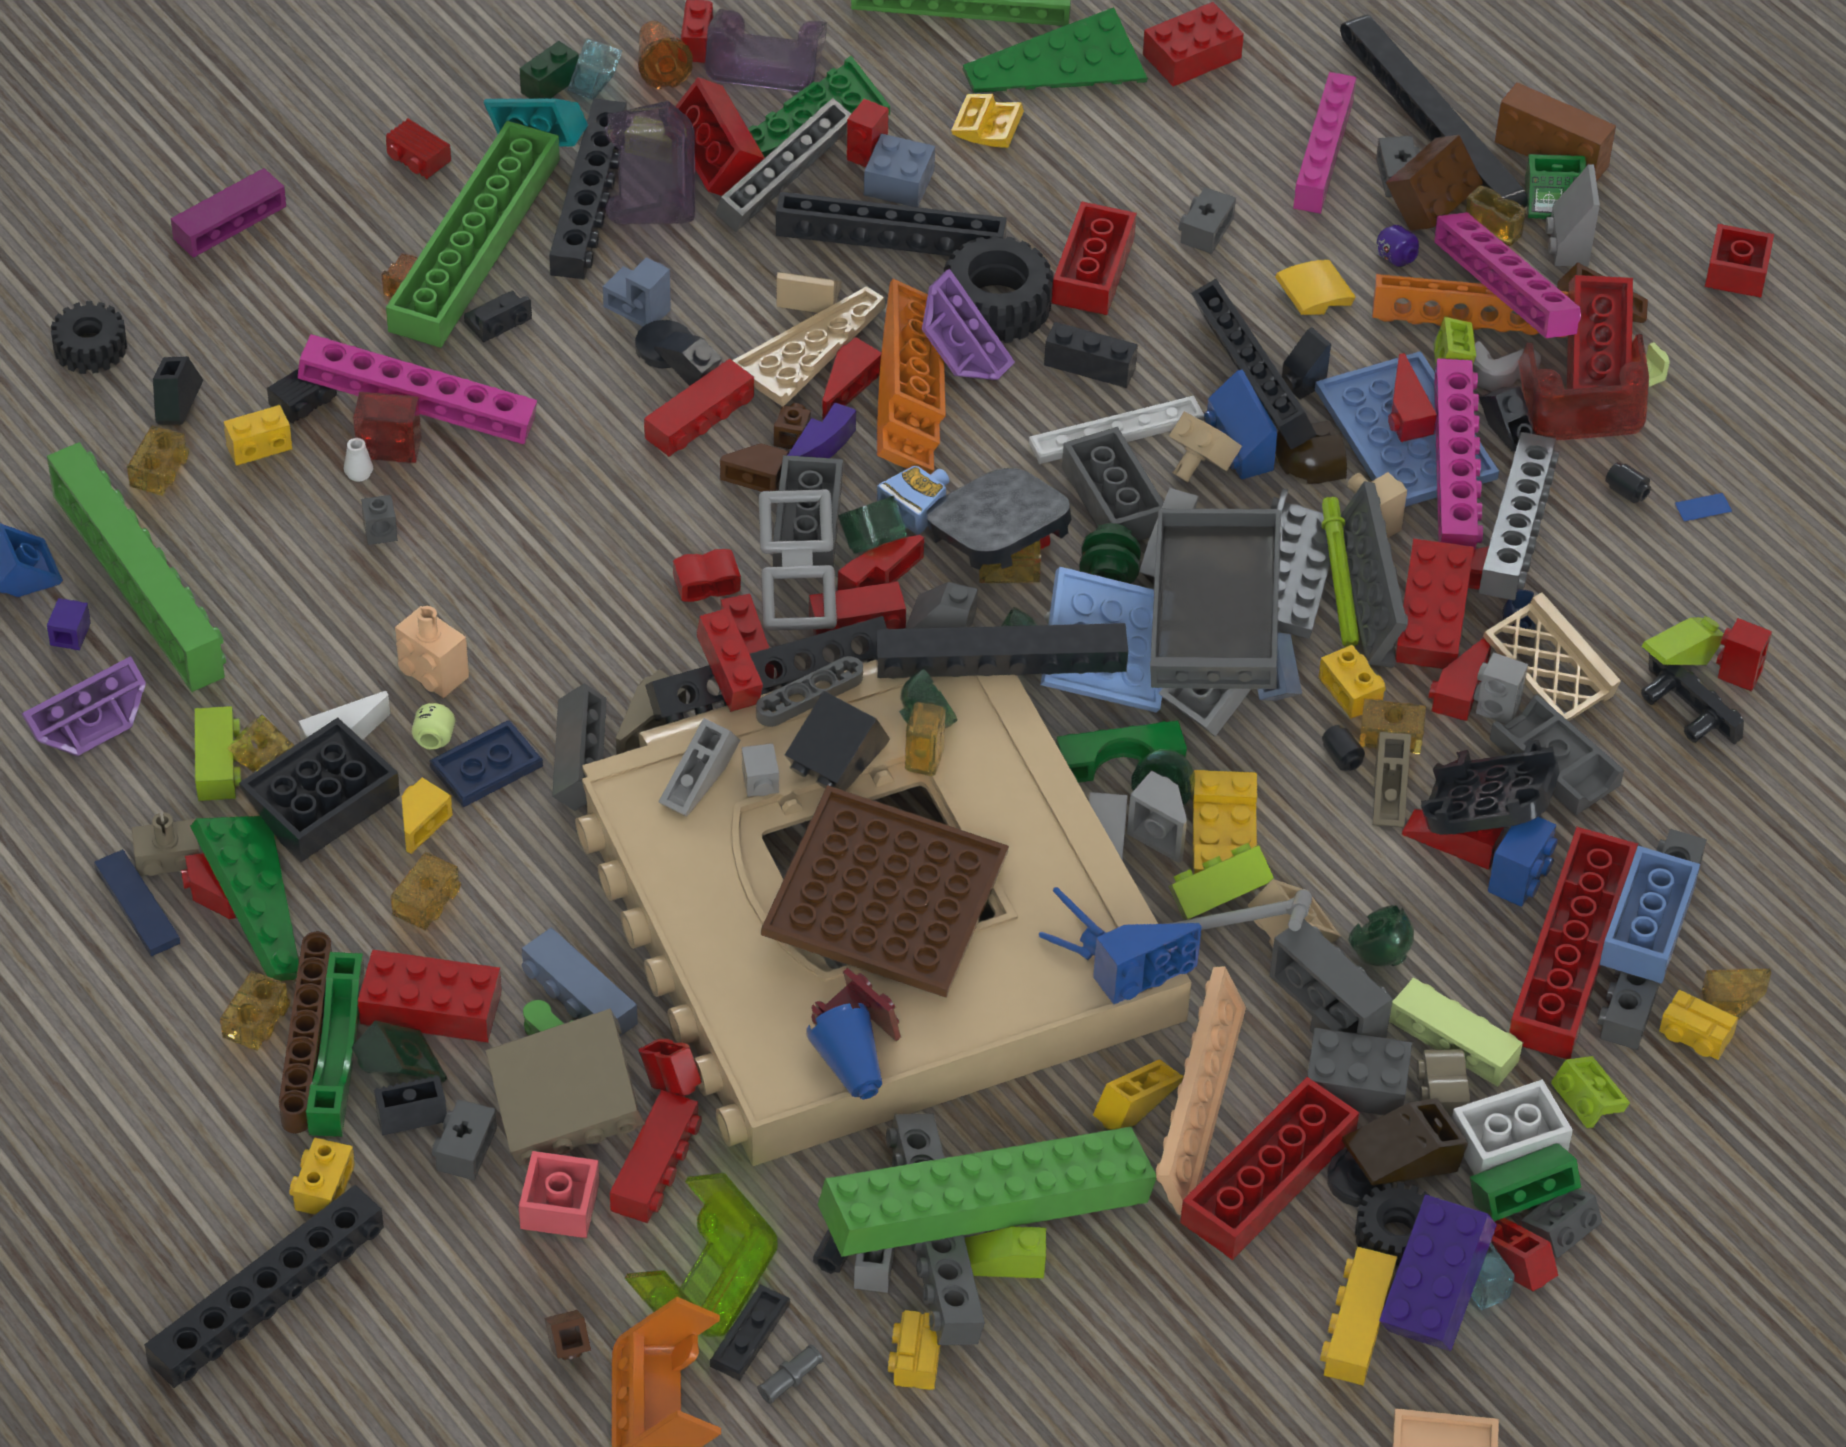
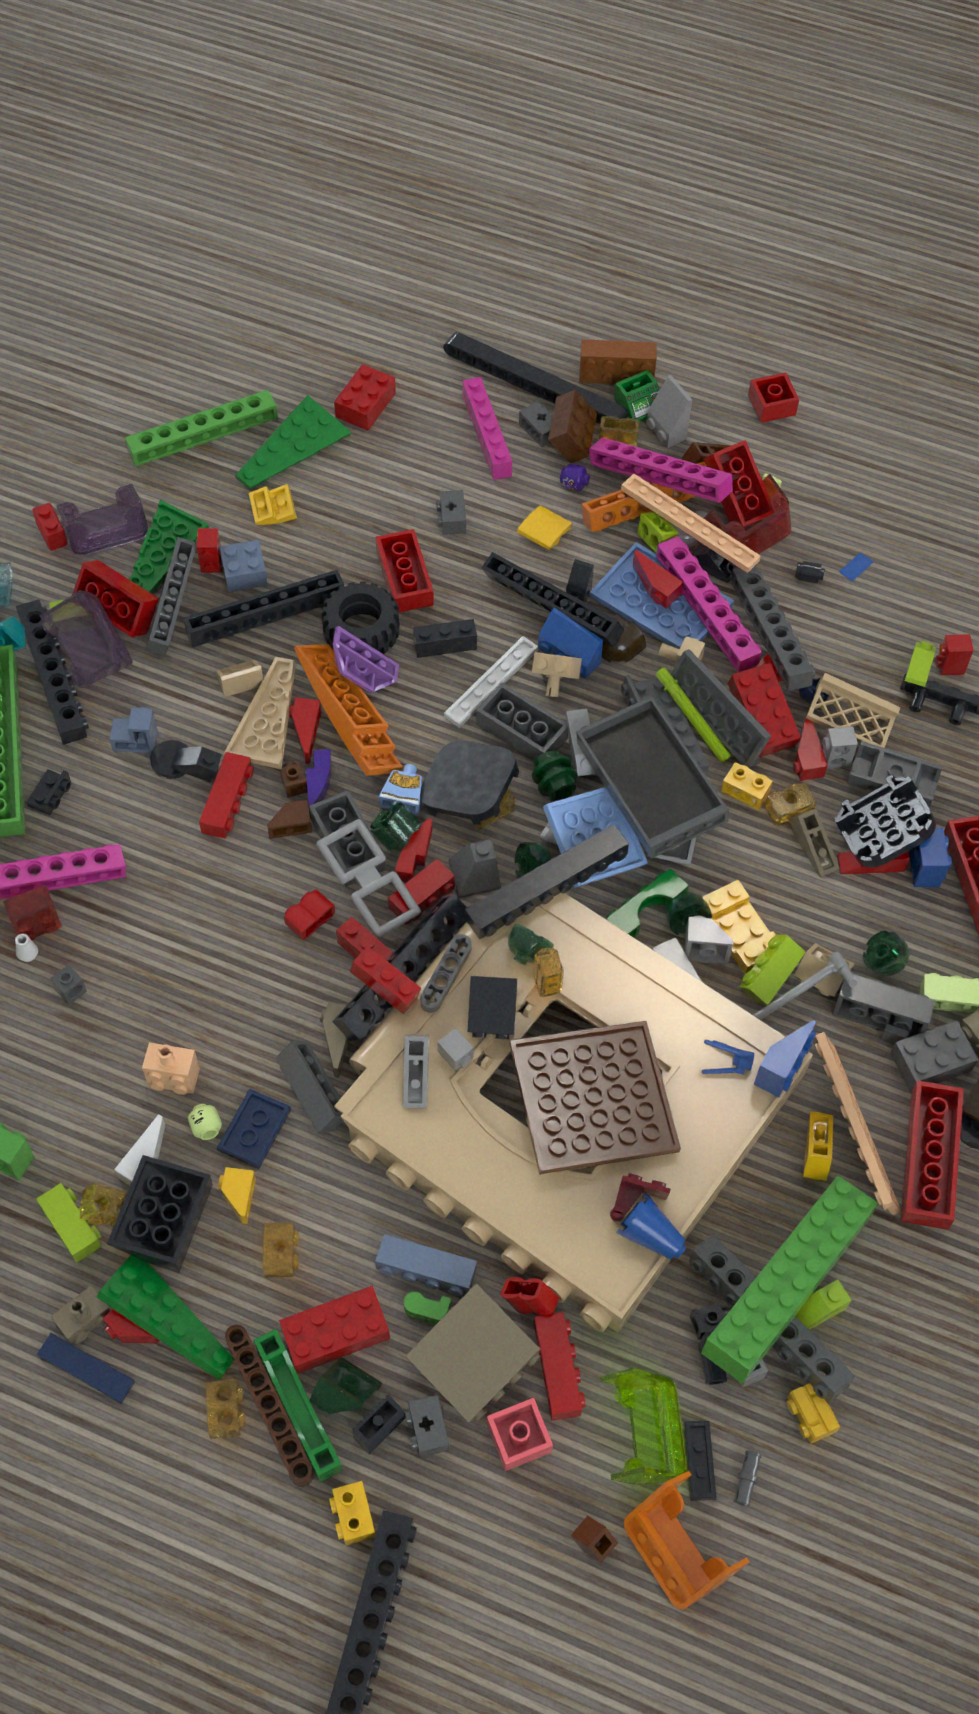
camera: 30 degrees left, 10 degrees up
(662, 56) = (39, 554): clear orange cone -> none
(1343, 748) = (773, 834): black brick -> none
(1496, 350) = (690, 523): none -> light nougat plate

